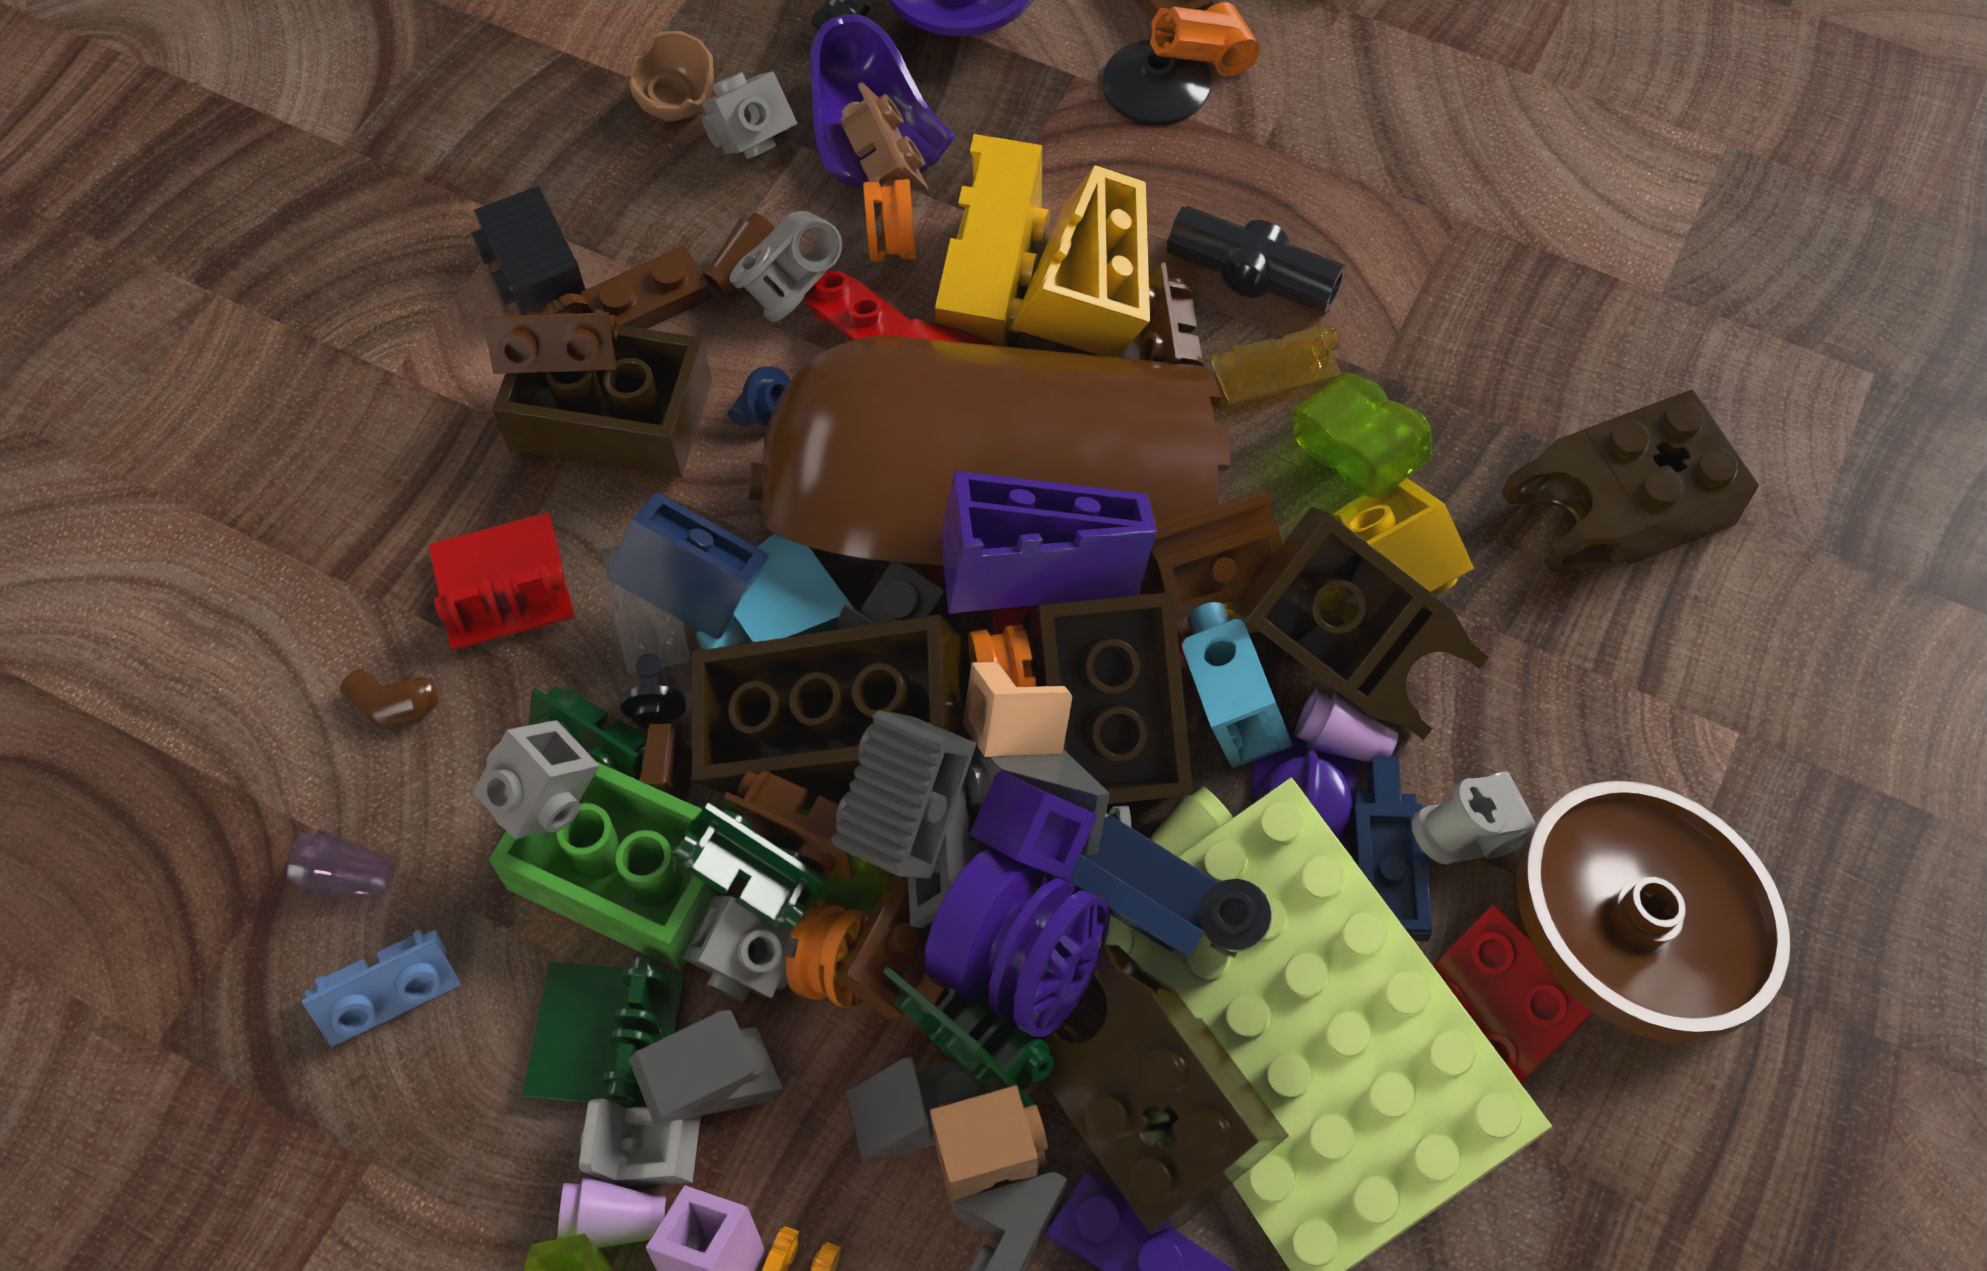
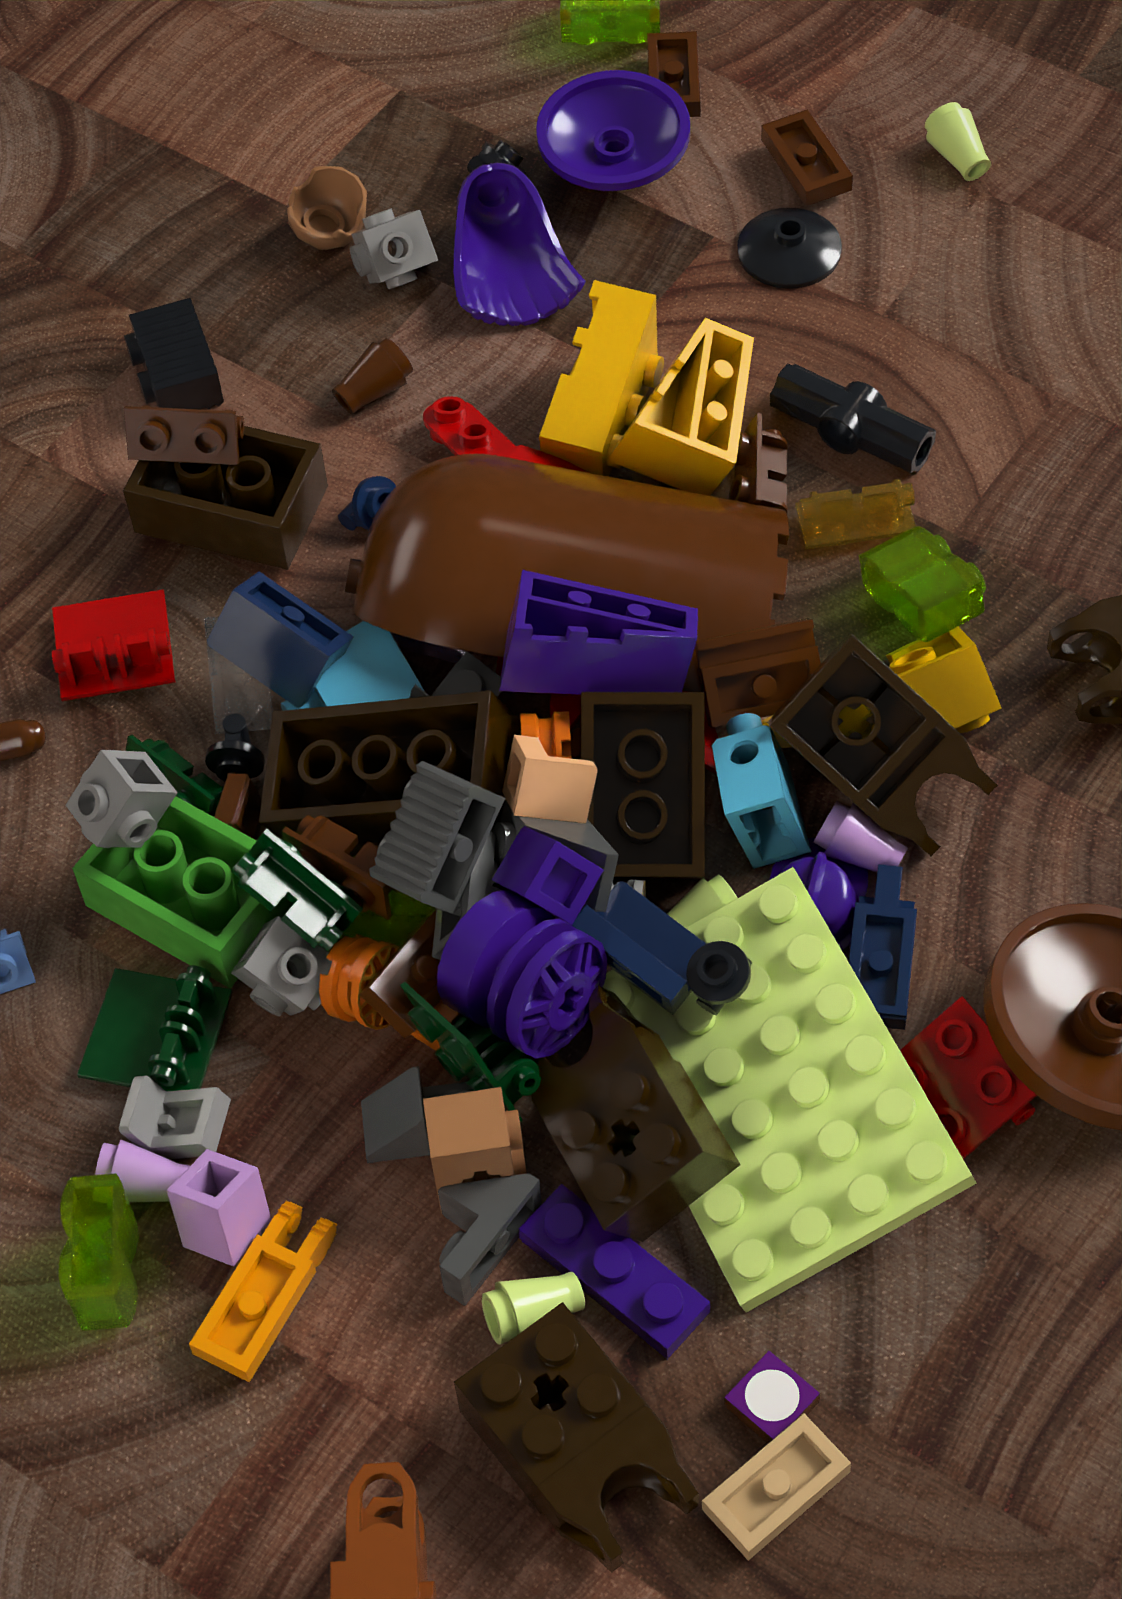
camera: 10 degrees right, 5 degrees down
(643, 293) = (279, 402): reddish brown hinge -> none
(705, 1070) = (239, 1061): dark grey slope -> none
(784, 266) = (407, 388): light grey piece -> none
(875, 125) = (511, 268): medium nougat hinge -> none
(895, 220) = (517, 354): orange wheel -> none
(1206, 36) = (841, 208): orange piece -> none
(1478, 821) = (960, 925): light grey piece -> none

